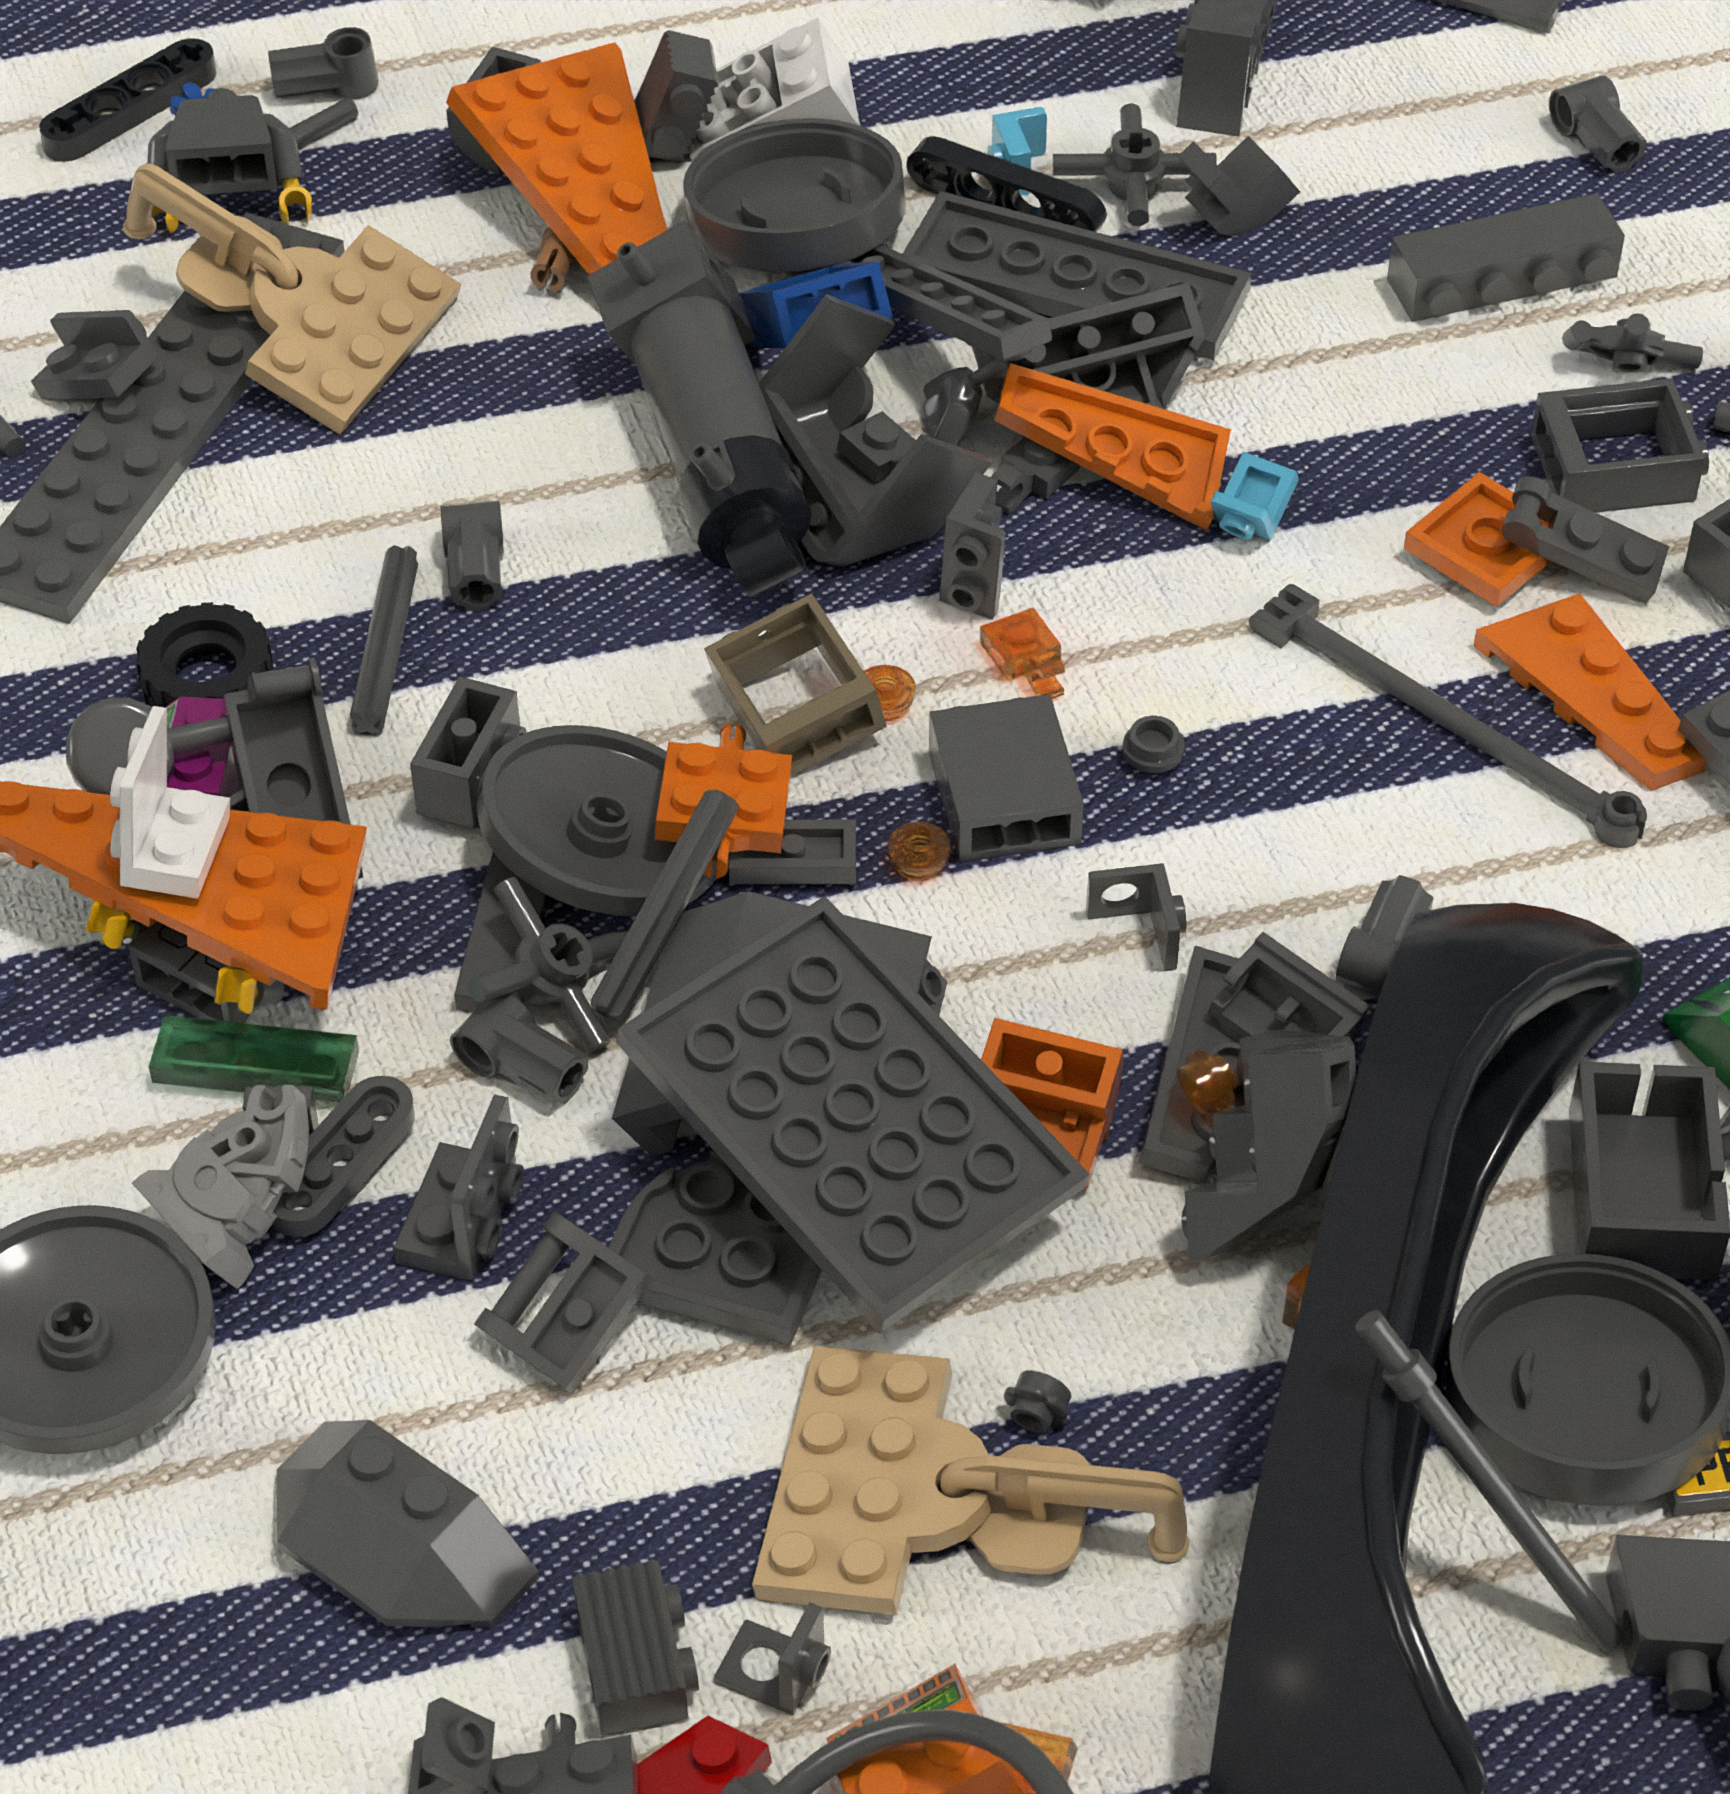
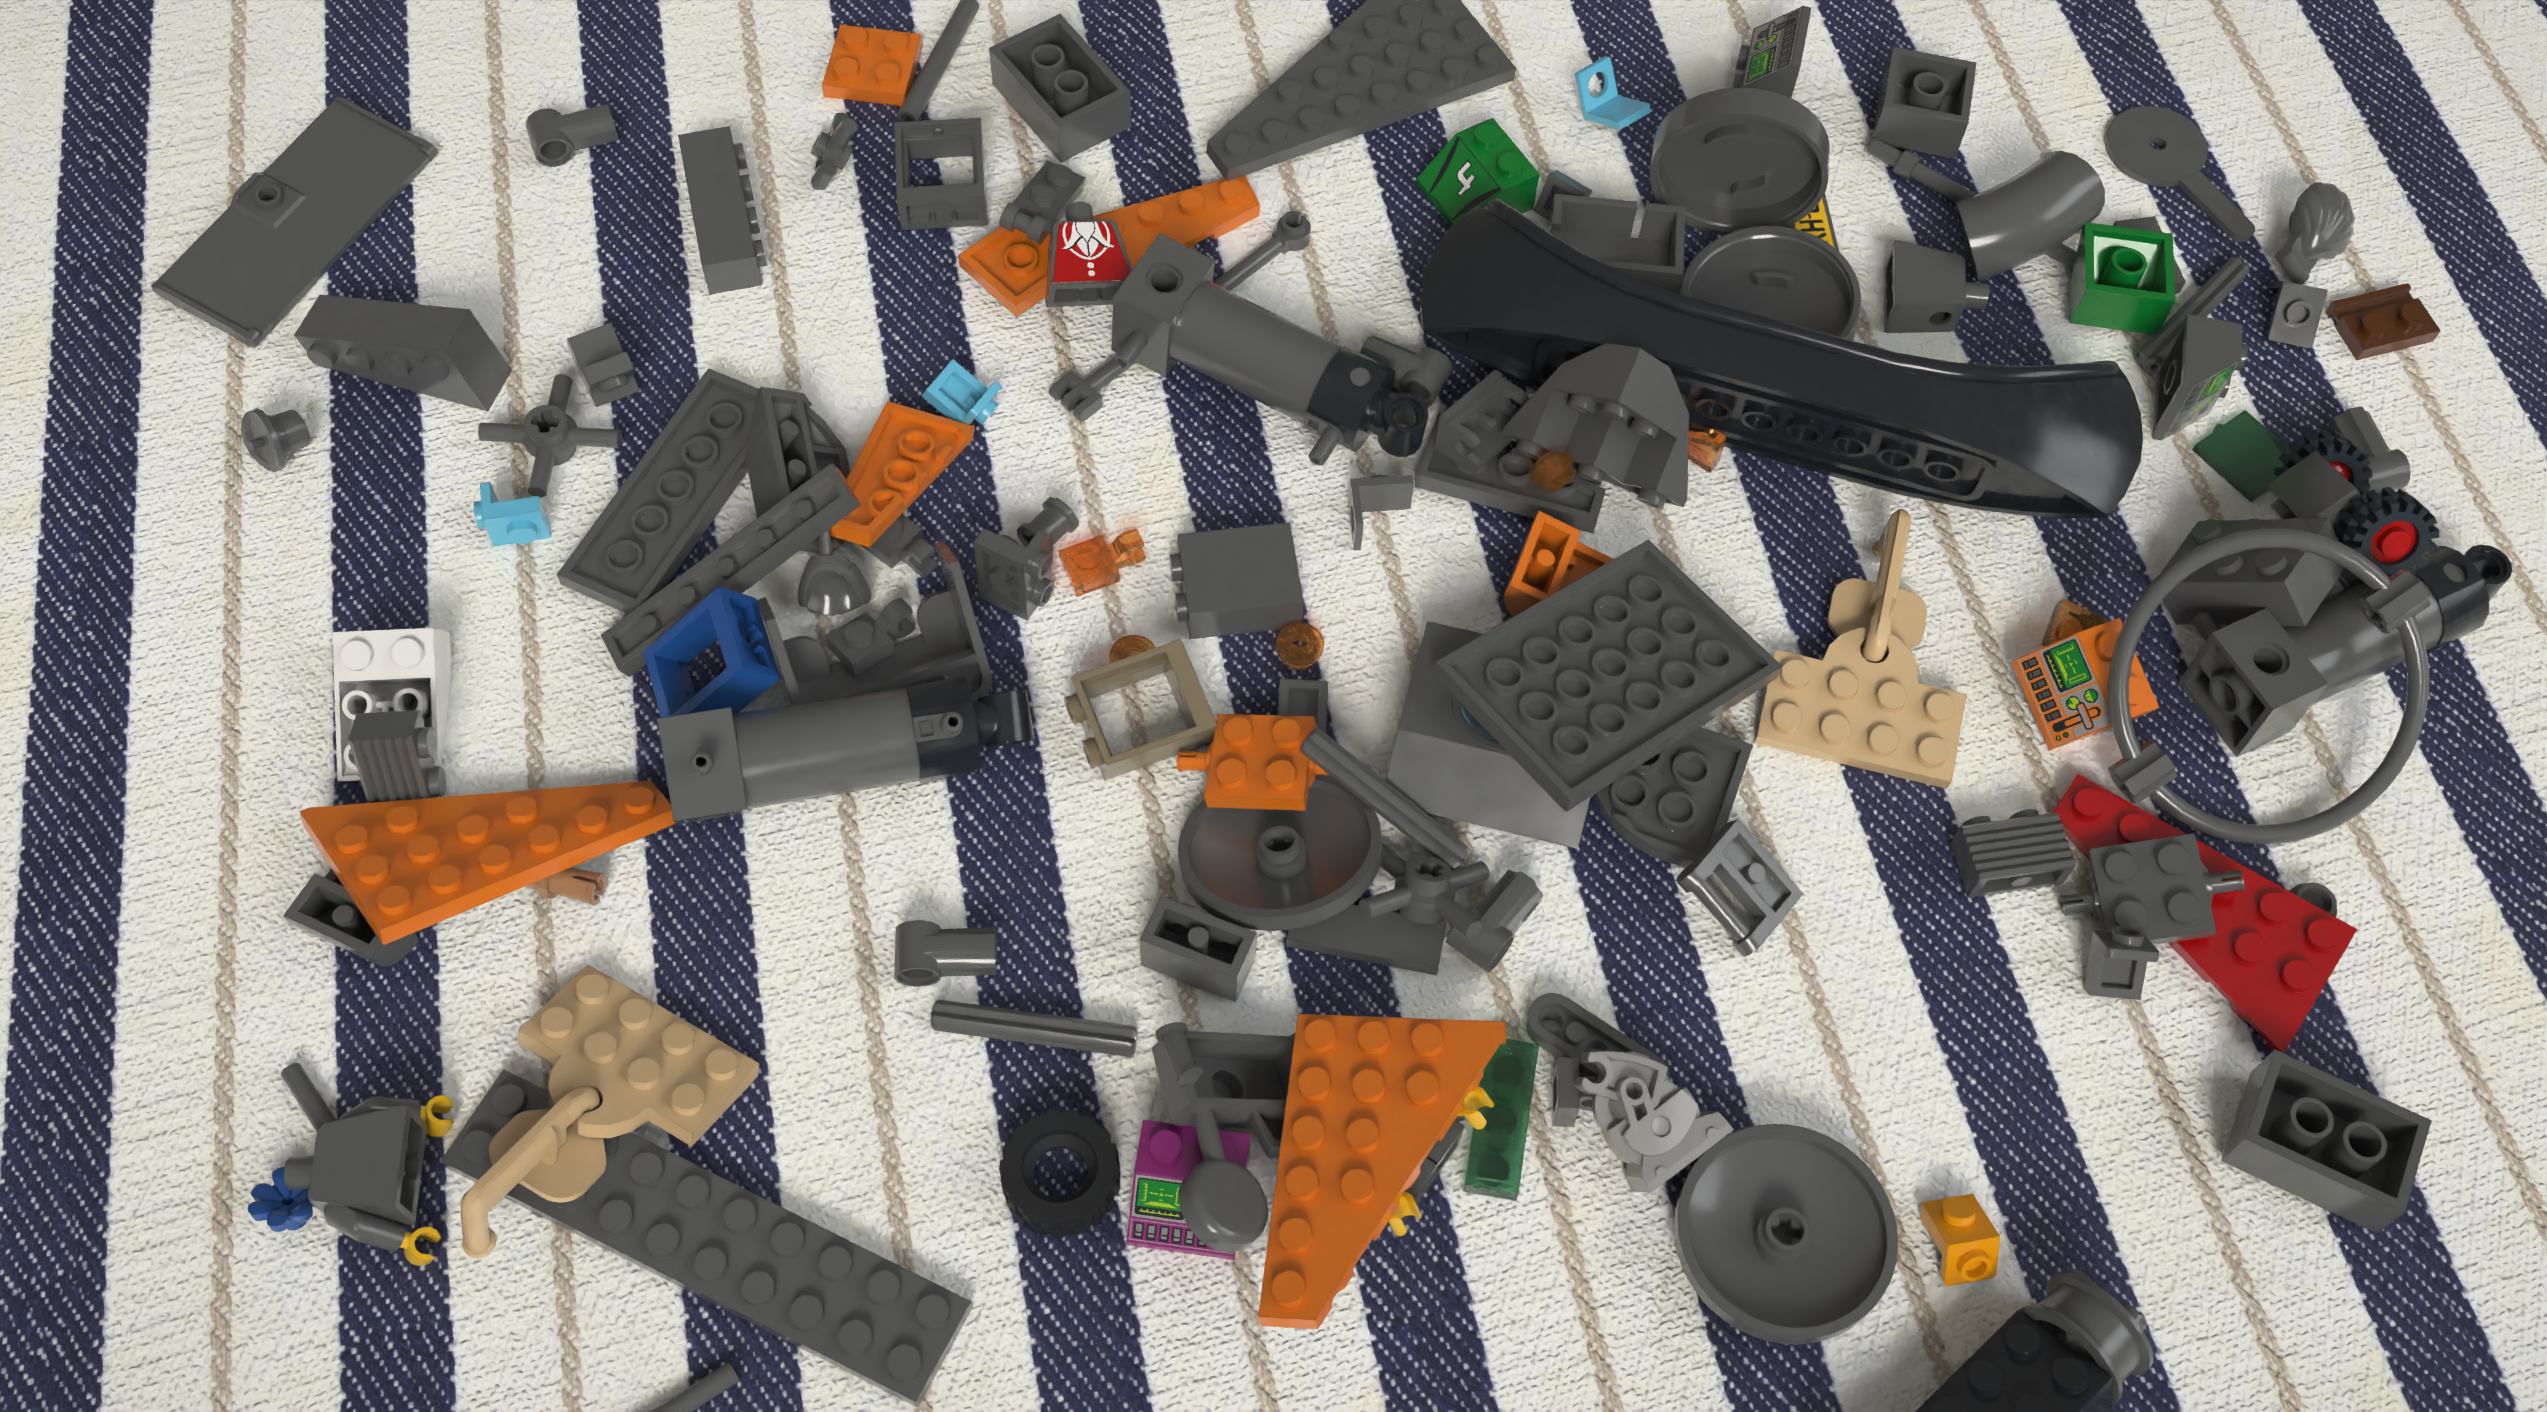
camera: 90 degrees left, 10 degrees up
(65, 1541) = (1963, 1238): none -> light orange bracket
(78, 130) = (217, 1292): black beam -> none
(98, 357) = (648, 1287): dark grey bracket -> none
(162, 832) = (1349, 1140): white bracket -> none
(339, 64) = (233, 1095): dark grey piece -> none
(396, 1531) = (1927, 1017): dark grey wedge -> none
(462, 1200) = (1645, 952): dark grey bracket -> none
(795, 194) = (541, 681): dark grey piece -> none
(800, 1665) = (2012, 755): dark grey bracket -> none
(947, 167) = (556, 531): black beam -> none
(1038, 1401) = (1794, 607): dark grey plate -> none
(1064, 593) = (1054, 518): none -> dark grey bush
(1153, 744) = (1206, 488): dark grey plate -> none
(1394, 672) = (1176, 313): none -> dark grey piece
(1414, 1381) = (1898, 334): dark grey bar -> none
(1480, 577) = (1084, 260): none -> torso

